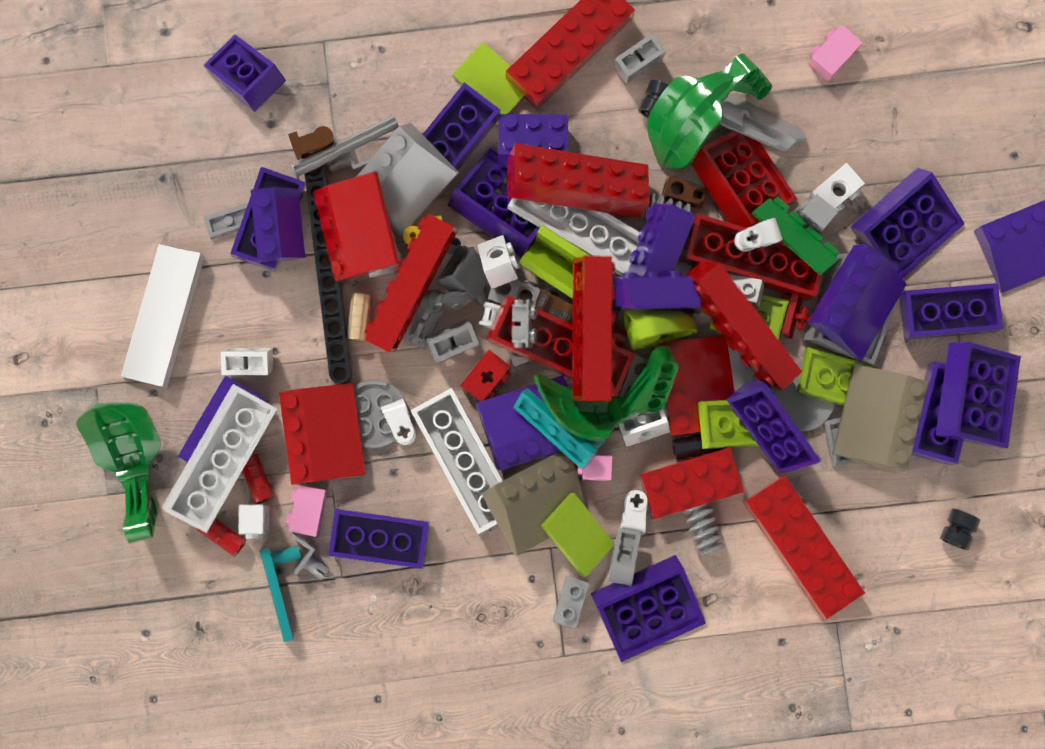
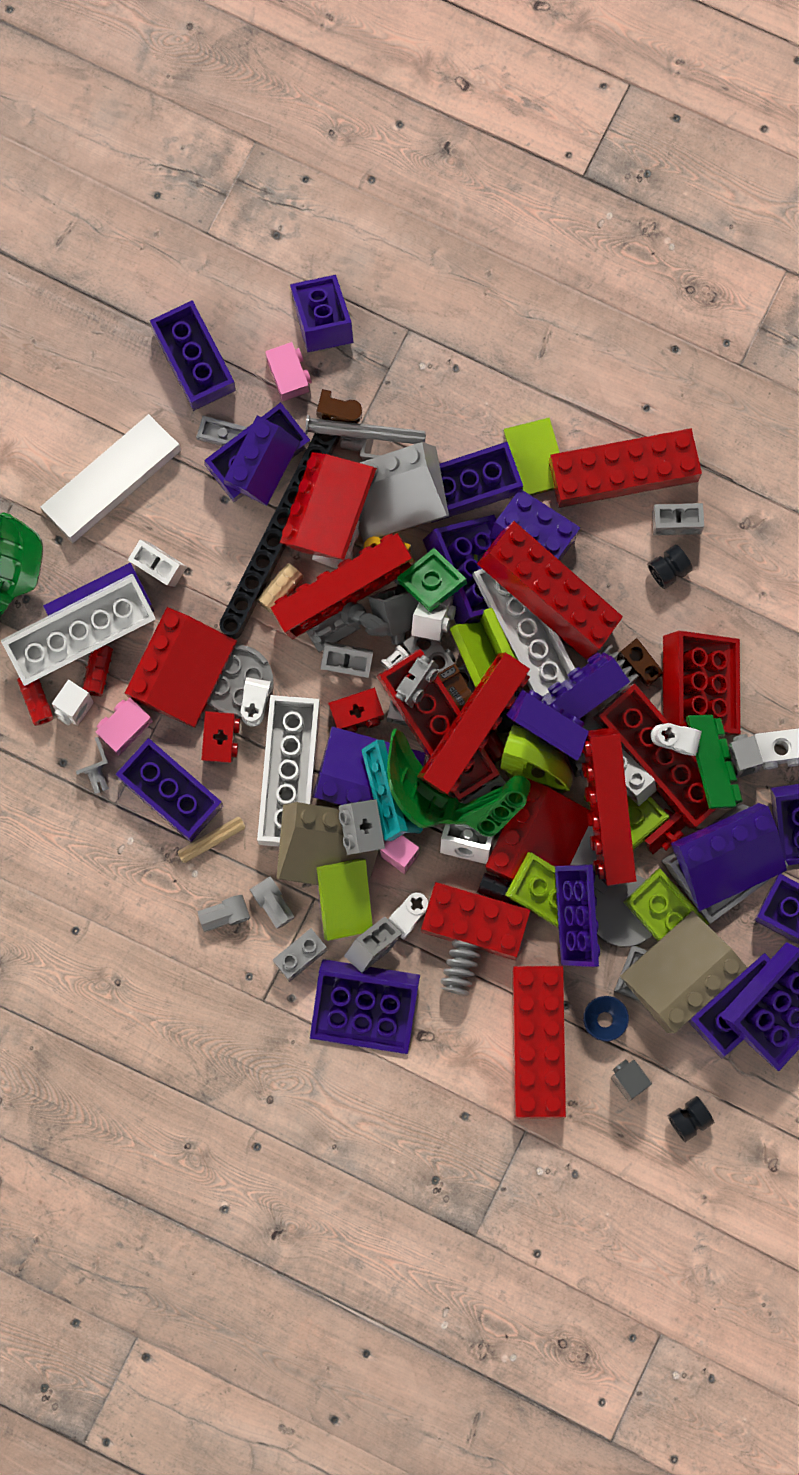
camera: 35 degrees right, 5 degrees down
(163, 173) = (193, 355): none -> dark purple brick
(248, 137) = (287, 371): none -> bright pink brick
(269, 561) = (61, 749): teal piece -> none
(391, 482) = (212, 725): none -> red brick
(438, 555) = (211, 839): none -> tan axle
(479, 233) = (432, 580): none -> green plate
(490, 605) = (230, 911): none -> light grey piece
(516, 572) = (269, 897): none -> light grey piece
(556, 471) = (369, 834): none -> light grey brick
(693, 110) = (692, 589): green piece -> none
(759, 124) = (734, 626): light grey panel -> none
(854, 489) = (608, 1005): none -> dark blue piece
(895, 530) = (630, 1079): none -> dark grey brick

